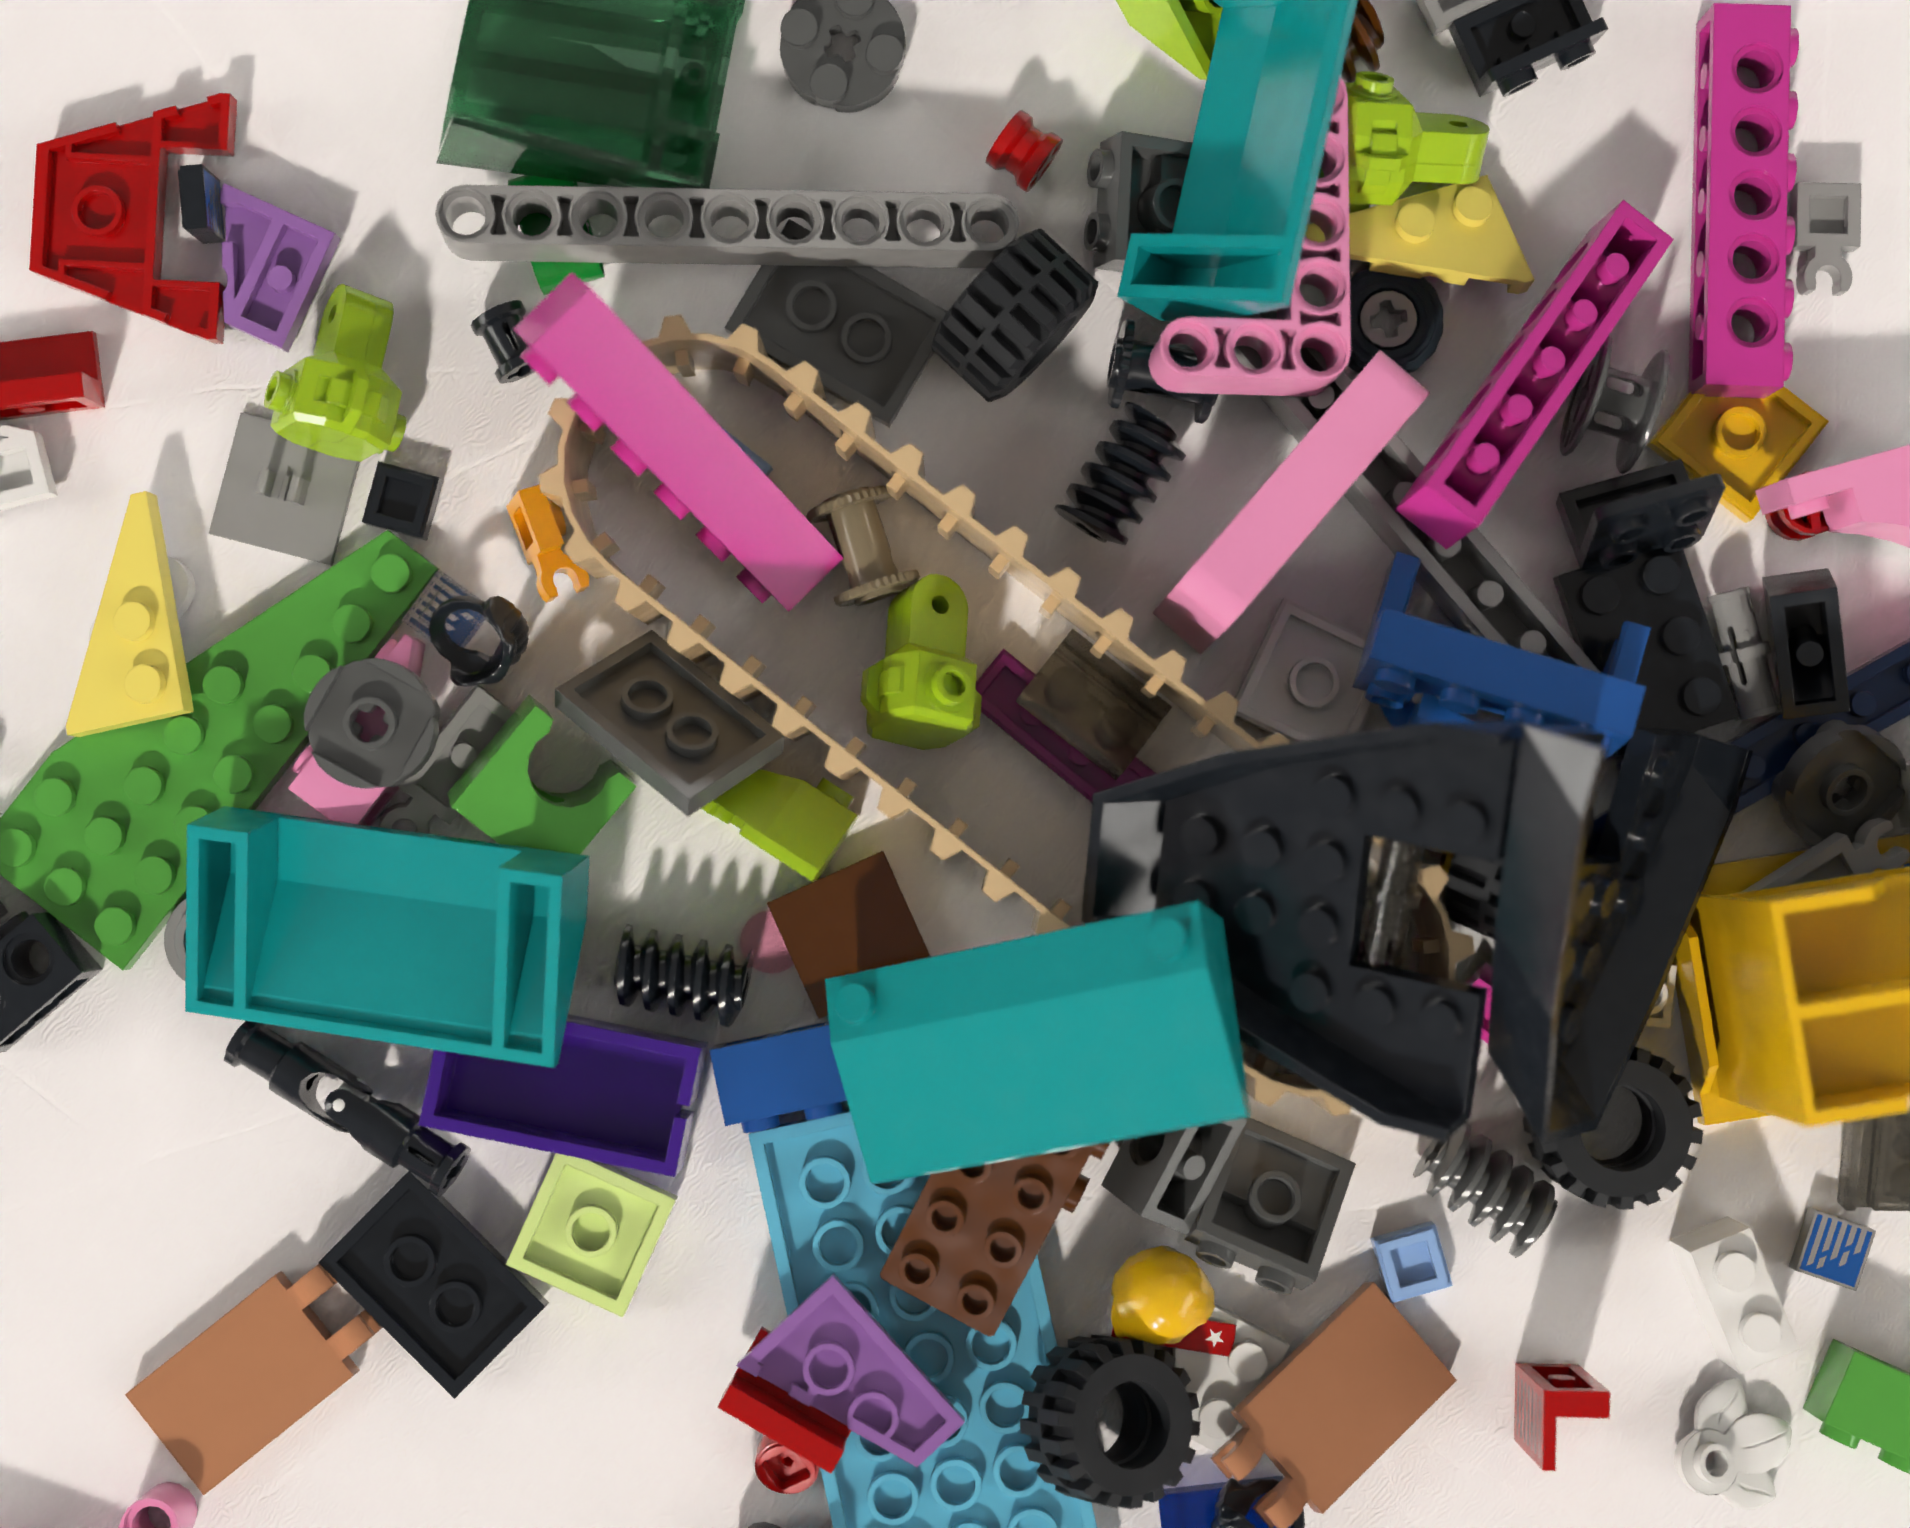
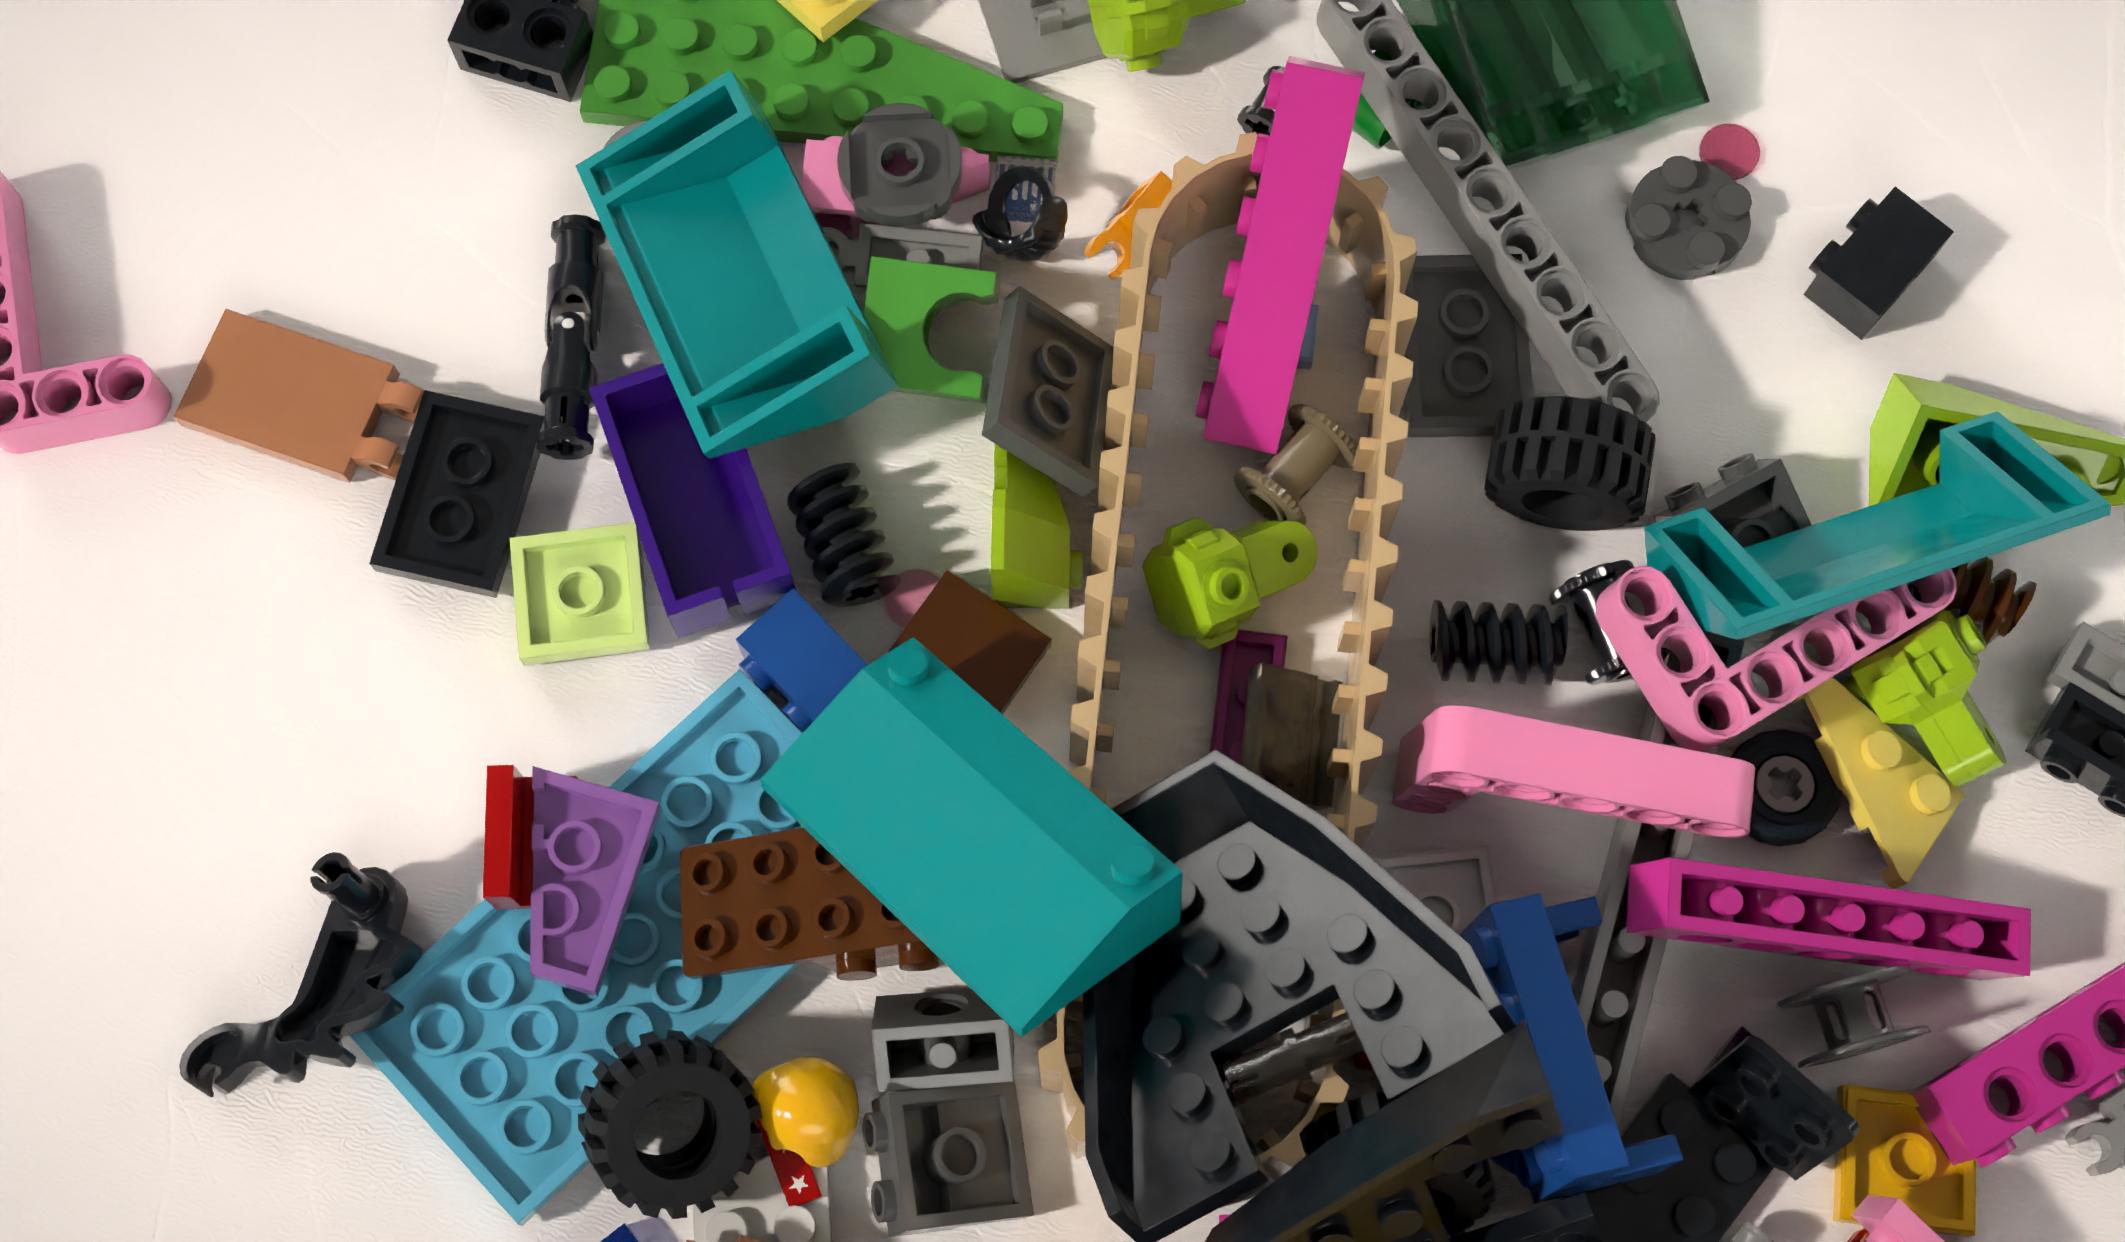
camera: 55 degrees right, 15 degrees down
(402, 500) = (1093, 104): black tile -> none
(783, 1469) = (462, 874): red tile -> none
(1024, 150) = (1708, 403): red wheel -> none

